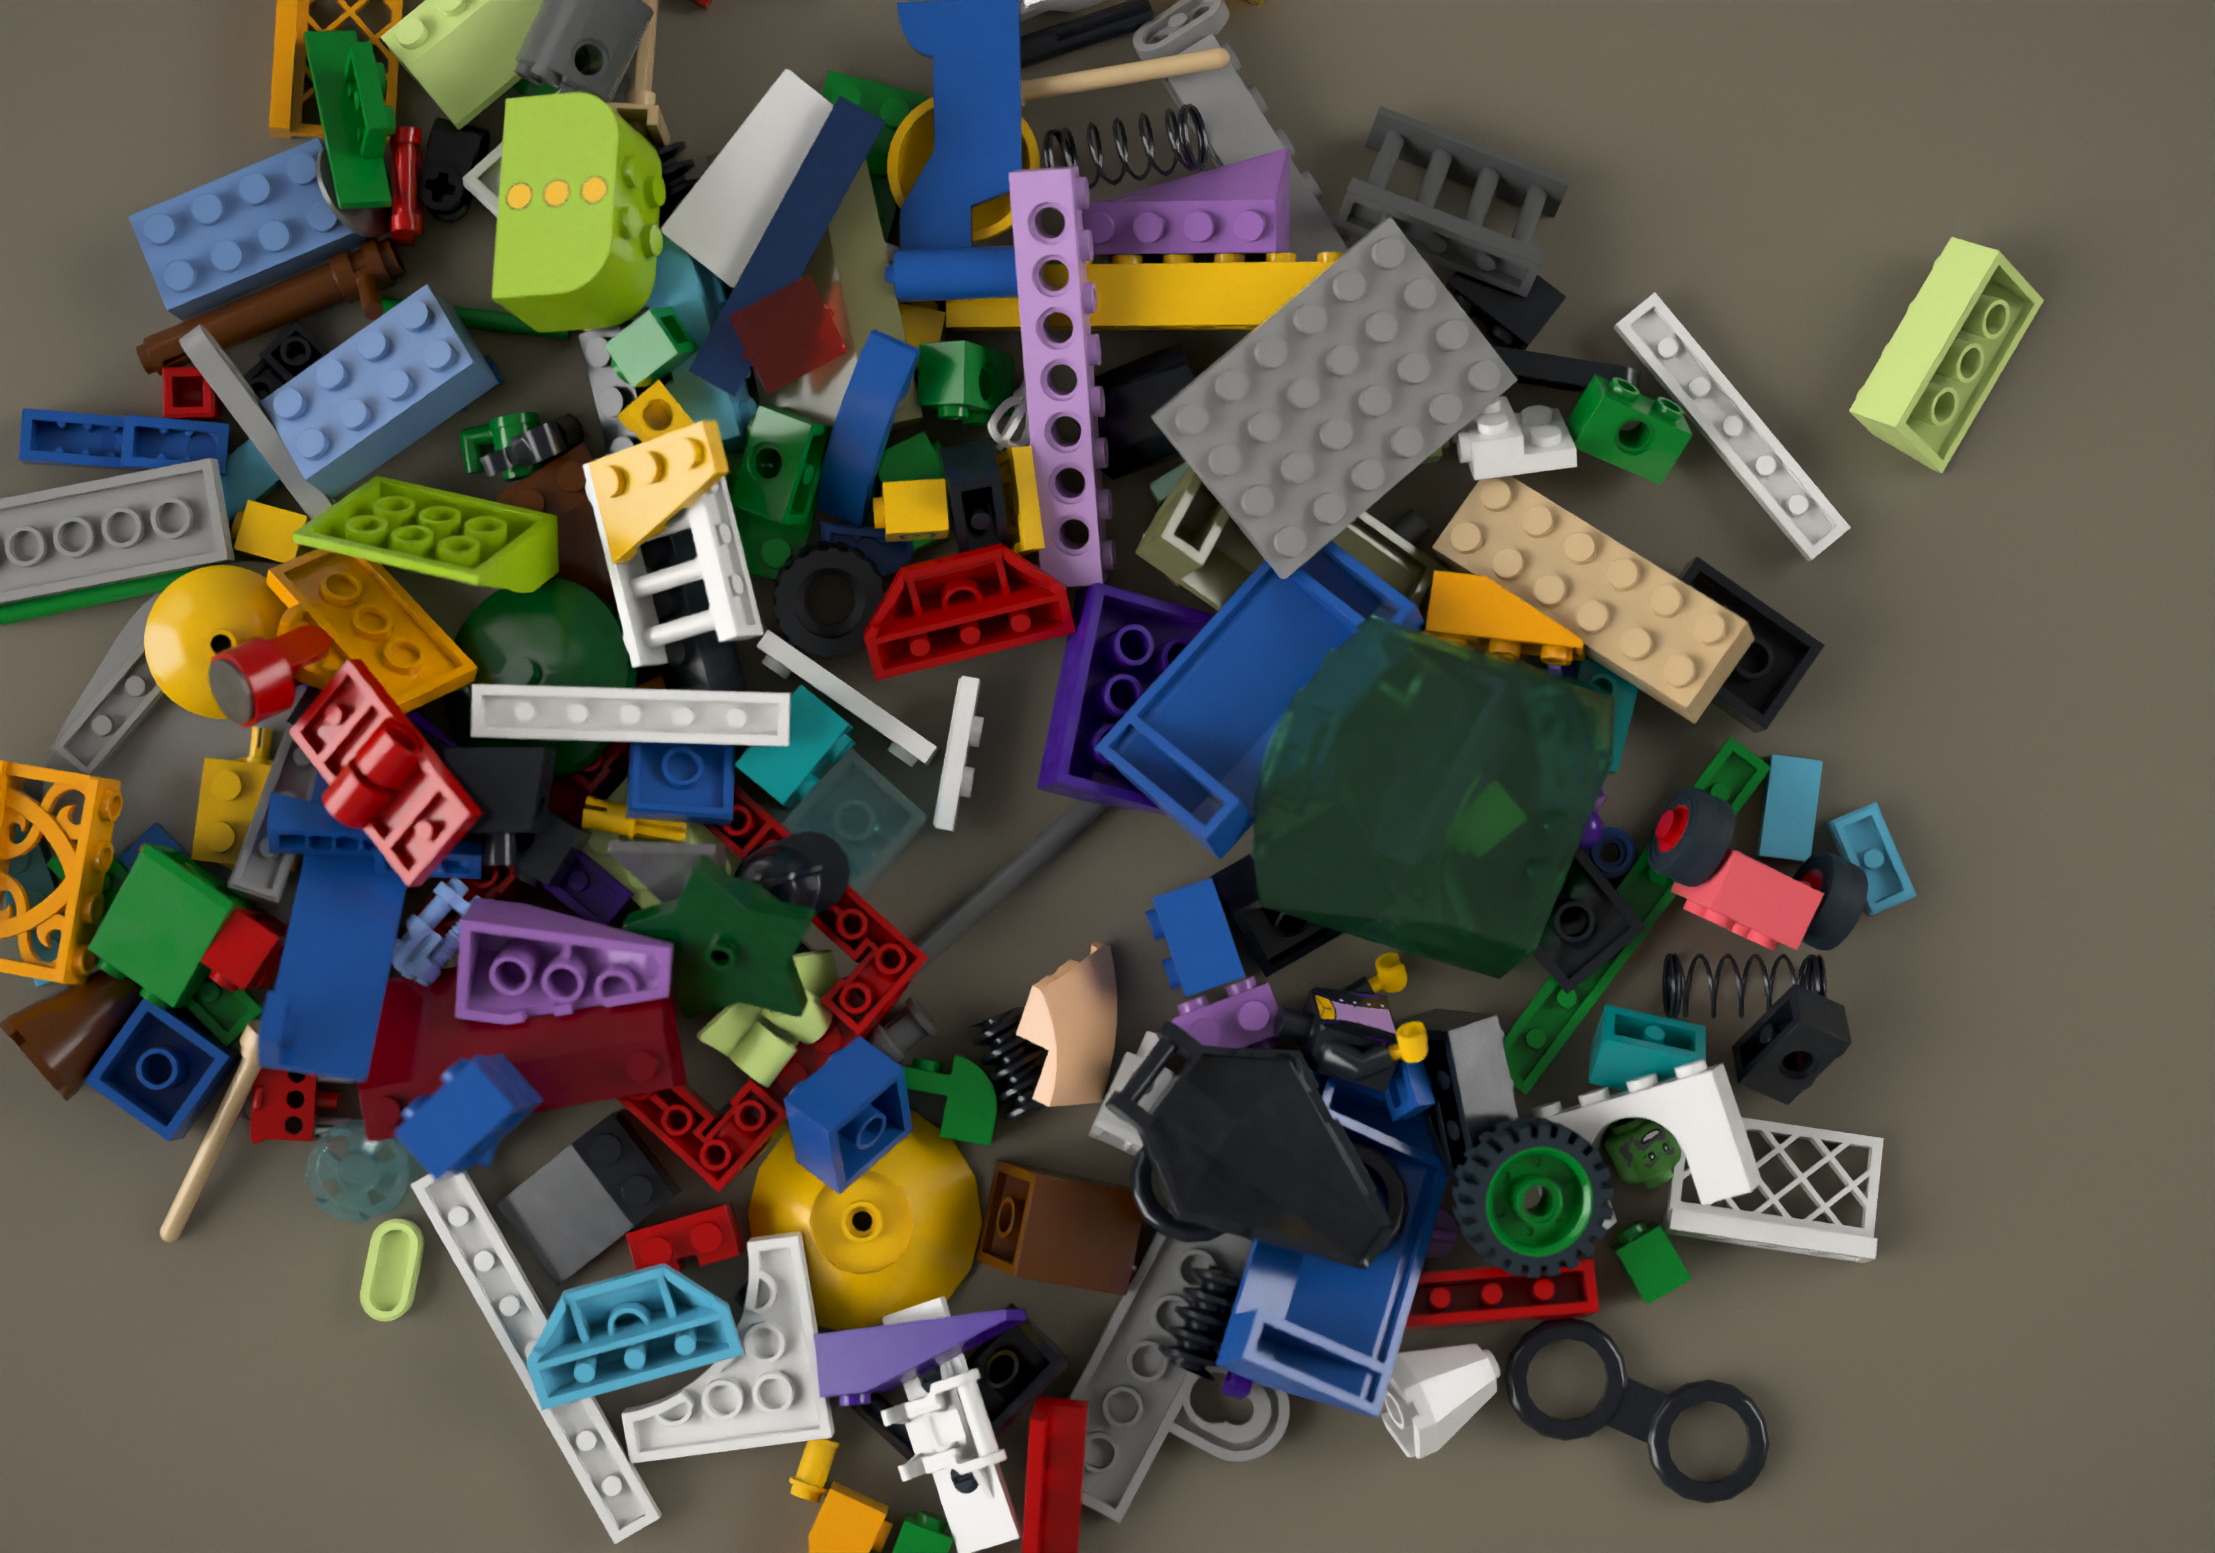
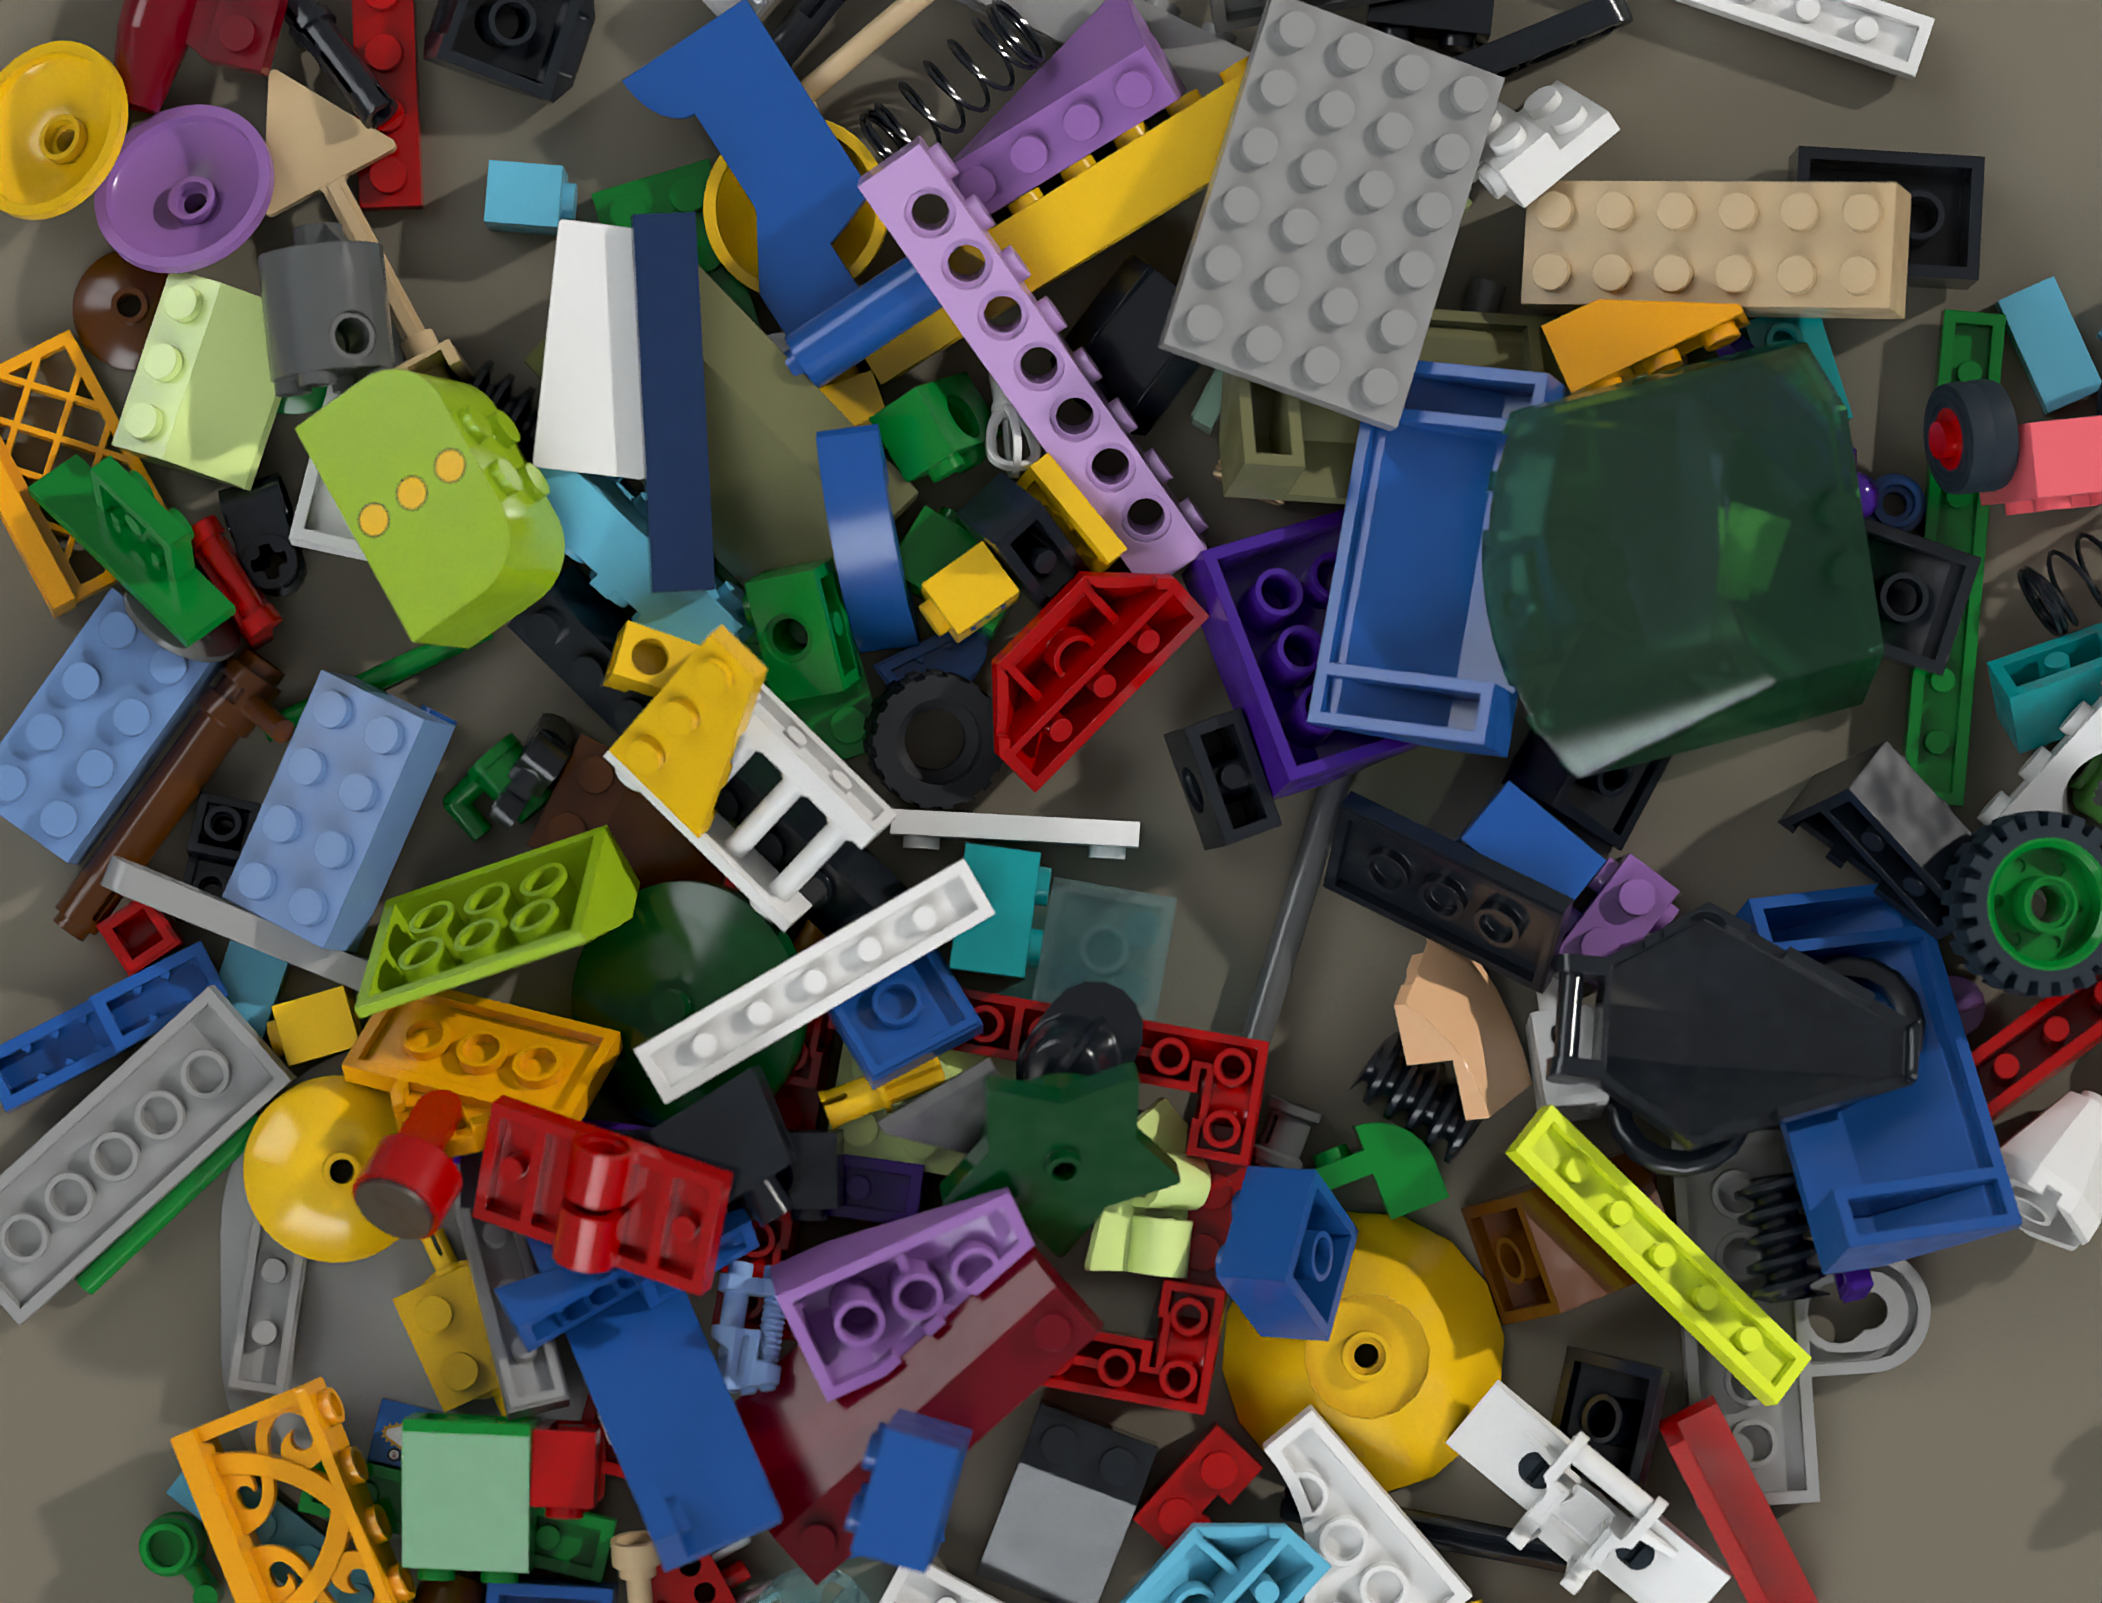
camera: 30 degrees left, 0 degrees up
(650, 347) = (597, 592): brick -> none
(782, 43) = (528, 197): none -> medium azure brick
(788, 333) = (730, 491): clear red piece -> none
(886, 1356) = (1478, 1478): slope -> none
(956, 776) = (1157, 790): white plate -> none
(1014, 753) = (1222, 779): none -> black brick
(1110, 1278) = (1658, 1255): none -> neon yellow plate
(1121, 929) = (1447, 892): none -> black tile
(1353, 1029) = (1747, 848): black torso -> none
(1408, 1091) = (1839, 873): blue plate -> none
(1645, 450) = (1675, 70): green brick -> none

